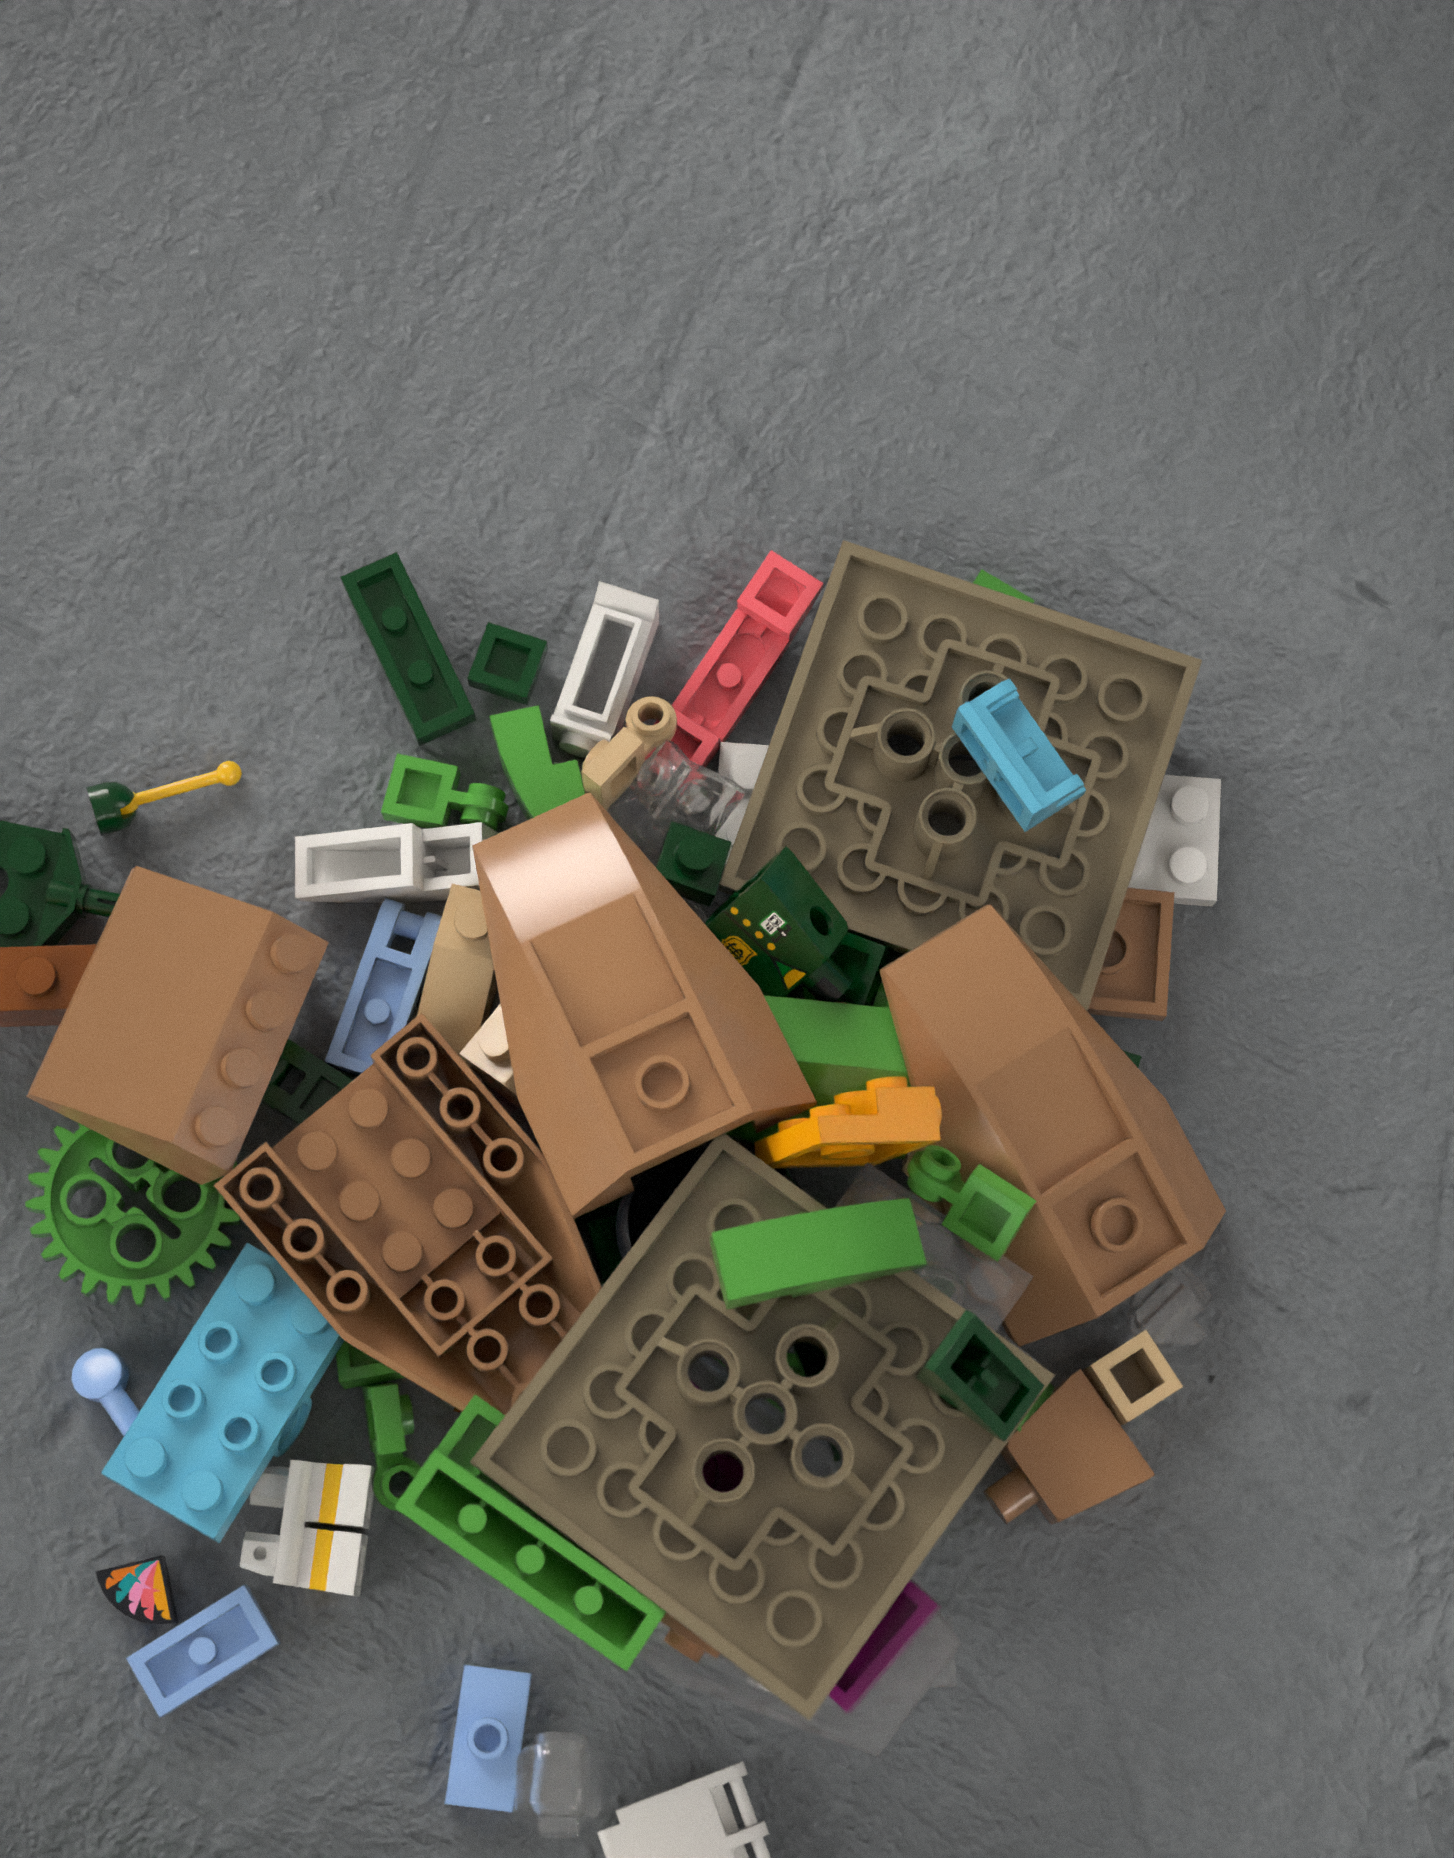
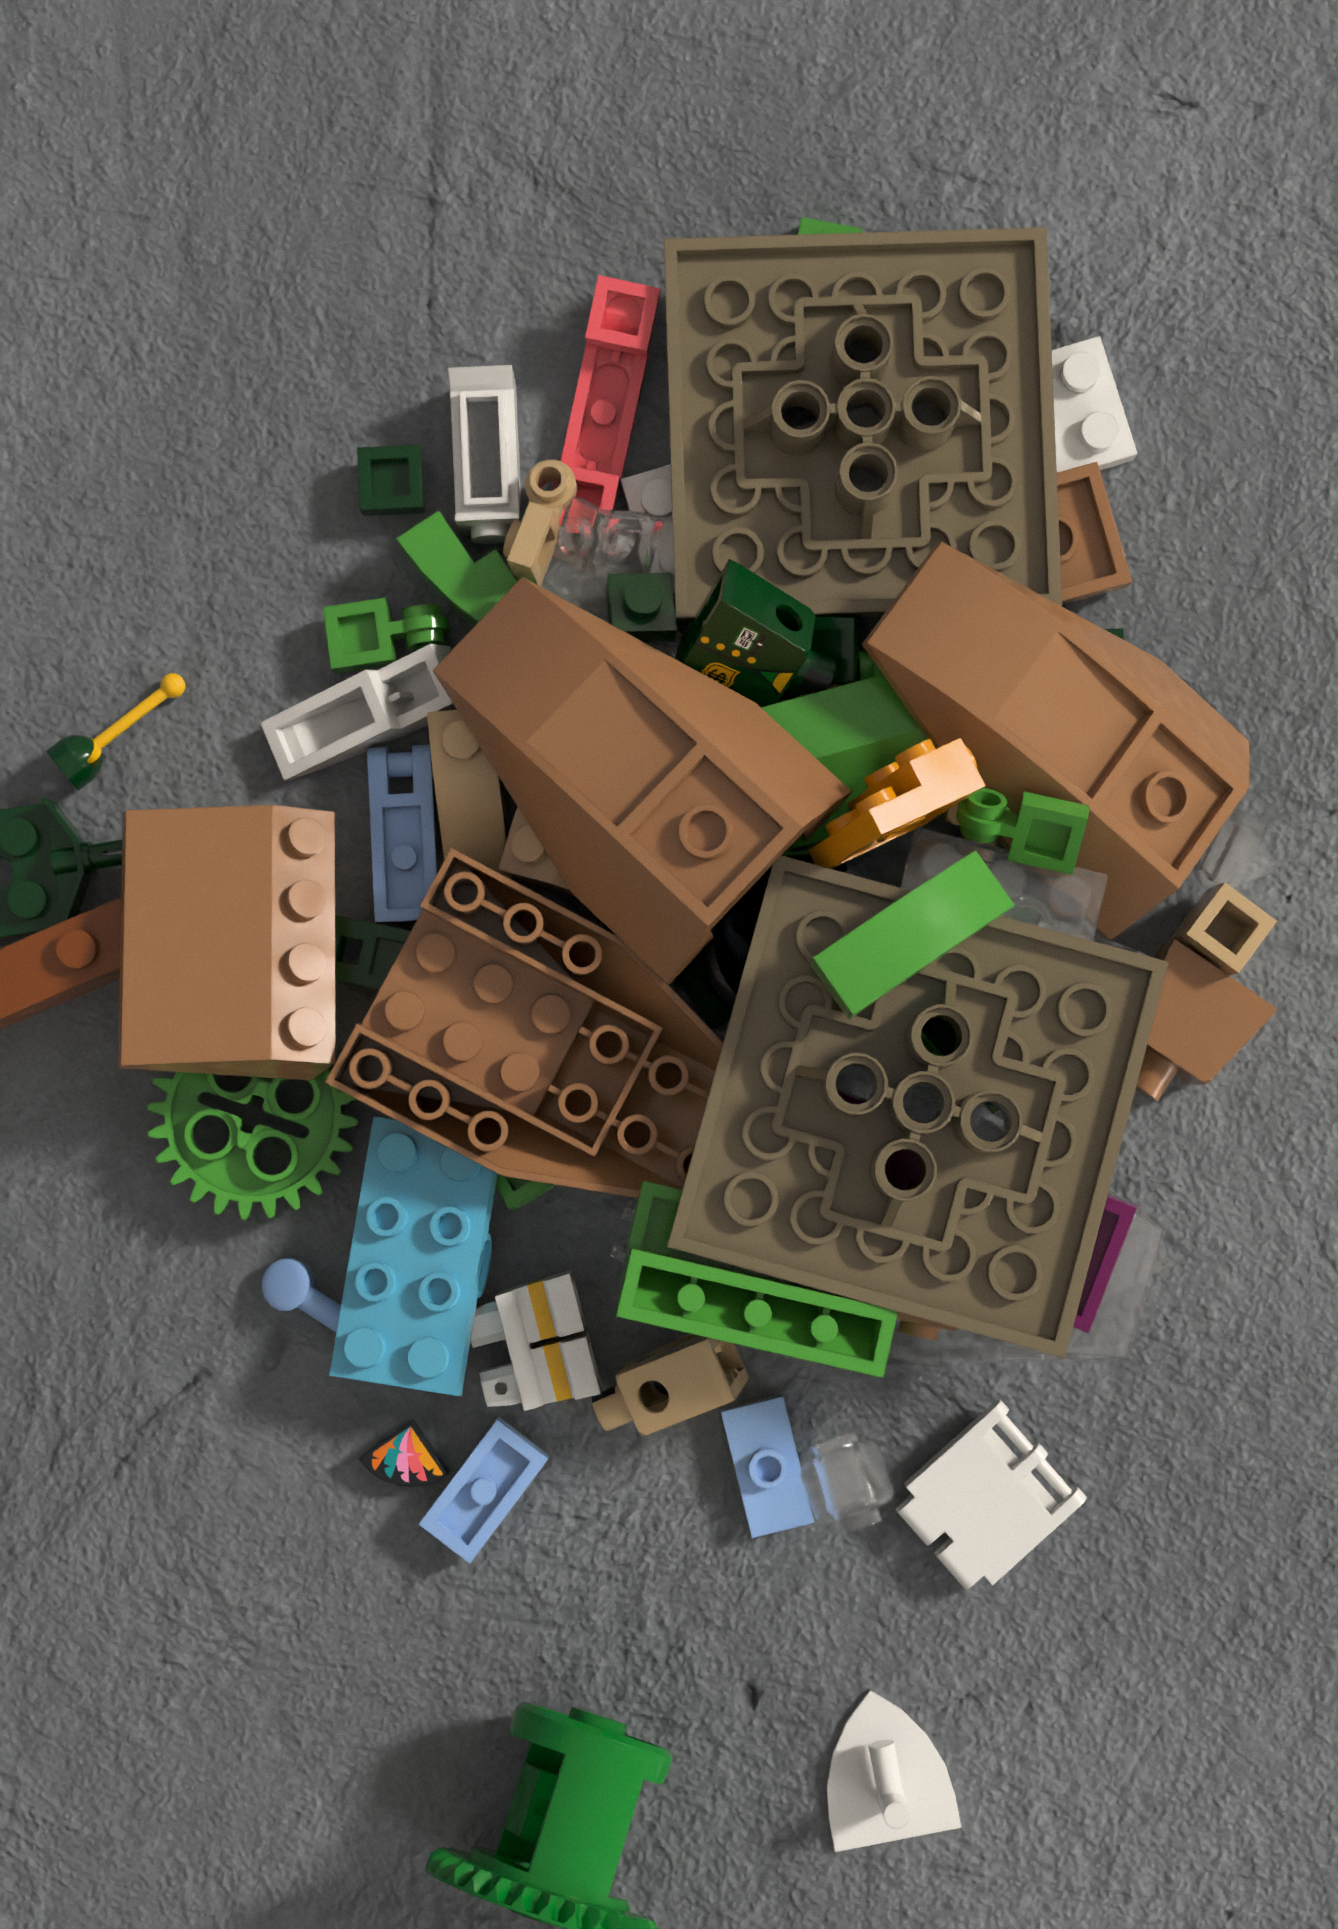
camera: 20 degrees left, 10 degrees up
(388, 1420) = (567, 1227): bright green plate -> none
(408, 648) = (291, 501): dark green plate -> none
(449, 1610) = (693, 1369): none -> tan torso
(981, 1377) = (1103, 990): dark green slope -> none
(1016, 755) = (913, 389): medium azure hinge -> none

